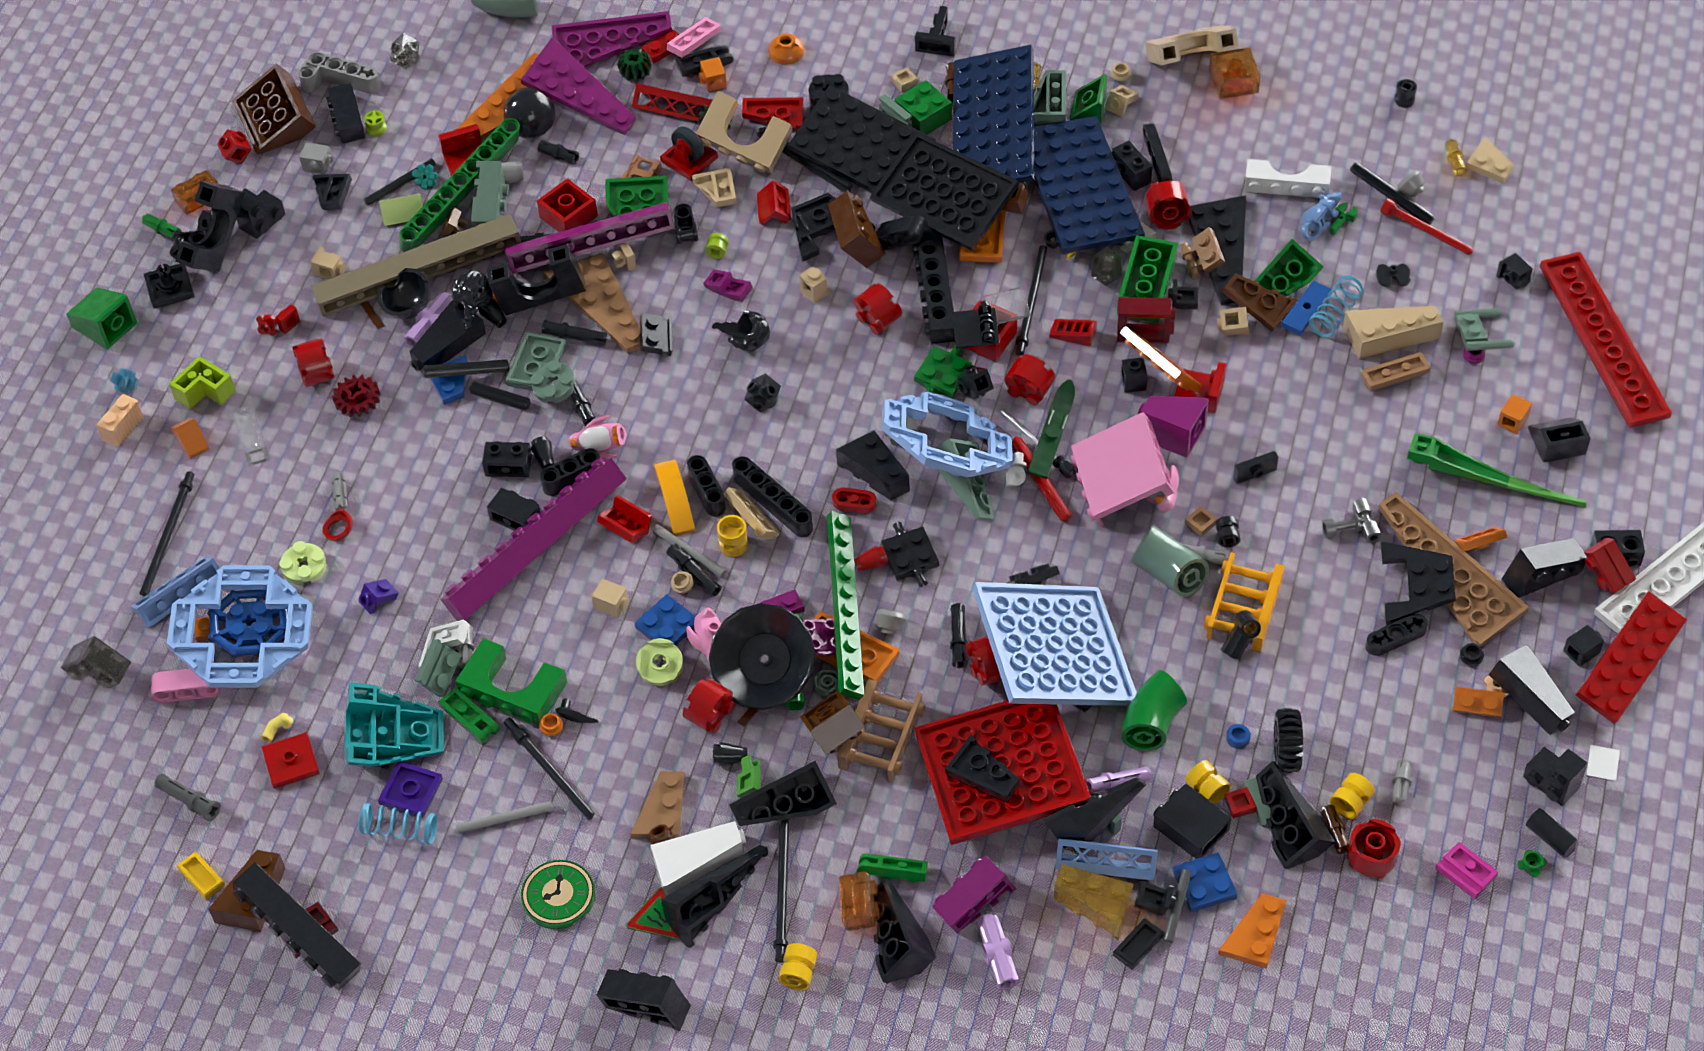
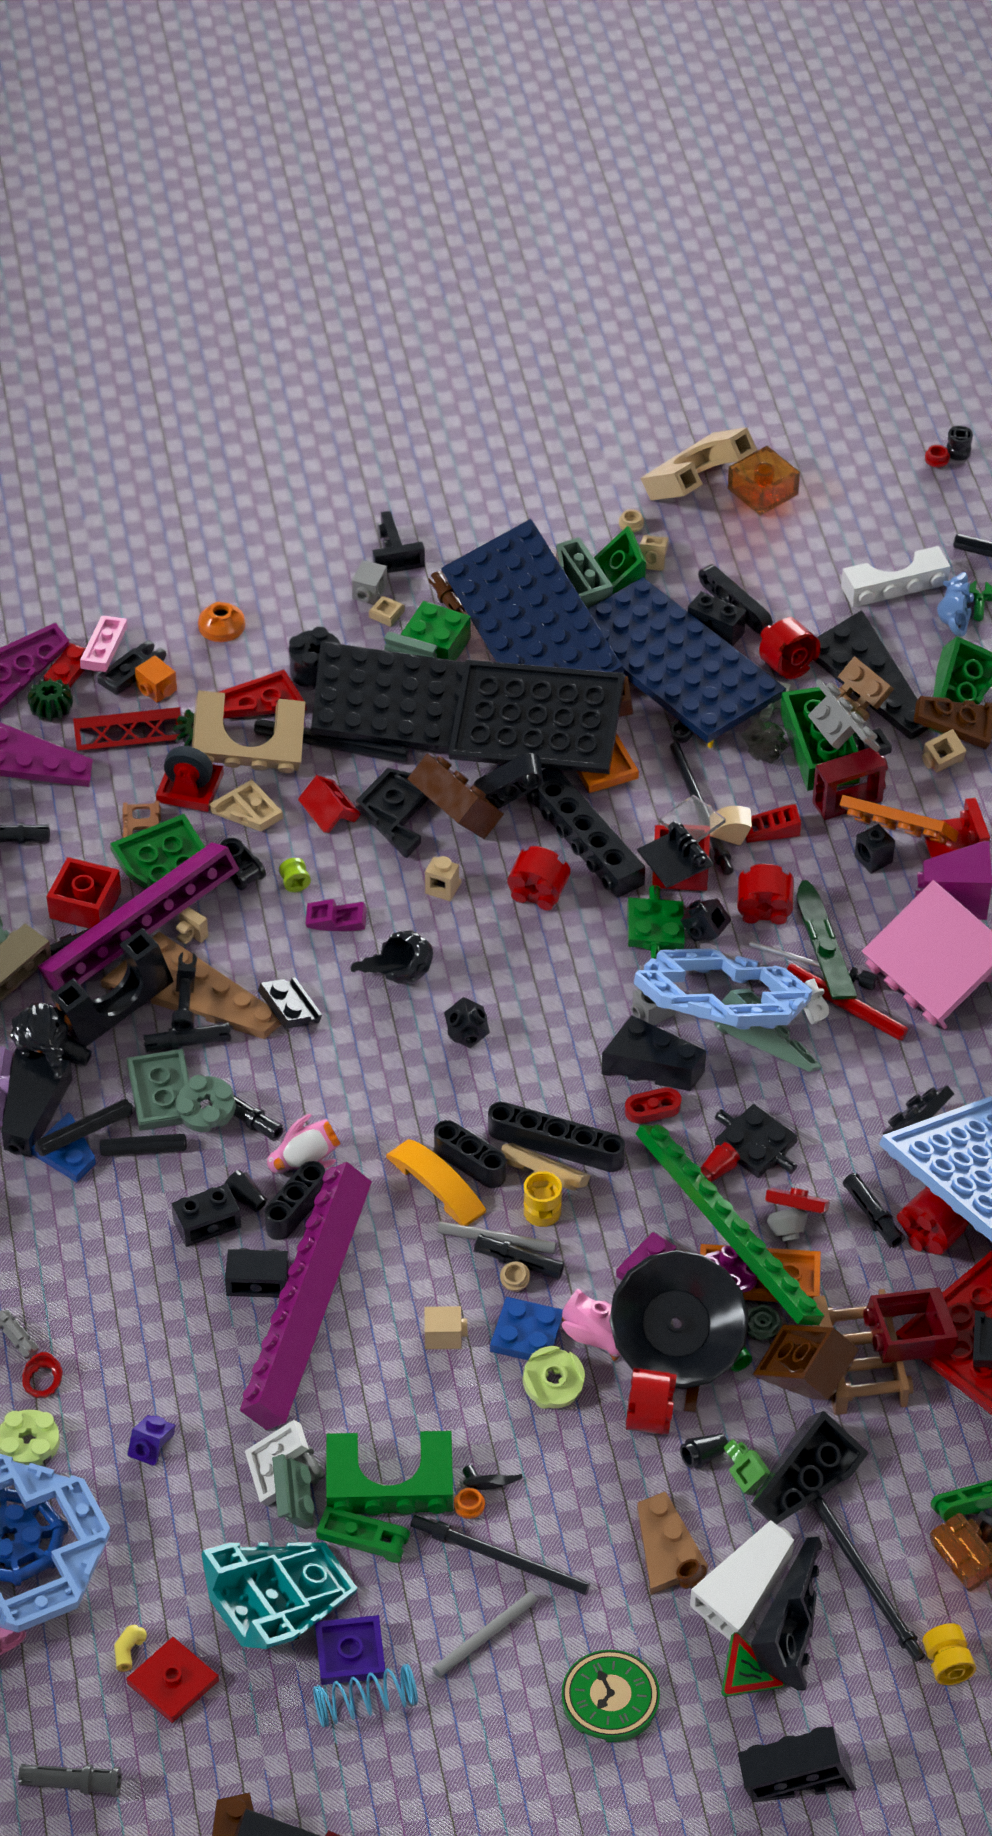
camera: 30 degrees left, 5 degrees down
(573, 318) = (183, 1018): none -> black bar
(626, 520) = (400, 1229): red bracket -> none
(903, 54) = (369, 582): none -> light grey brick
(904, 606) = (798, 1199): none -> red plate
(922, 709) = (911, 1302): none -> dark red window
(1041, 319) = (737, 824): none -> tan brick
(1158, 269) = (836, 720): none -> light grey bracket
(1383, 98) = (937, 456): none -> red plate

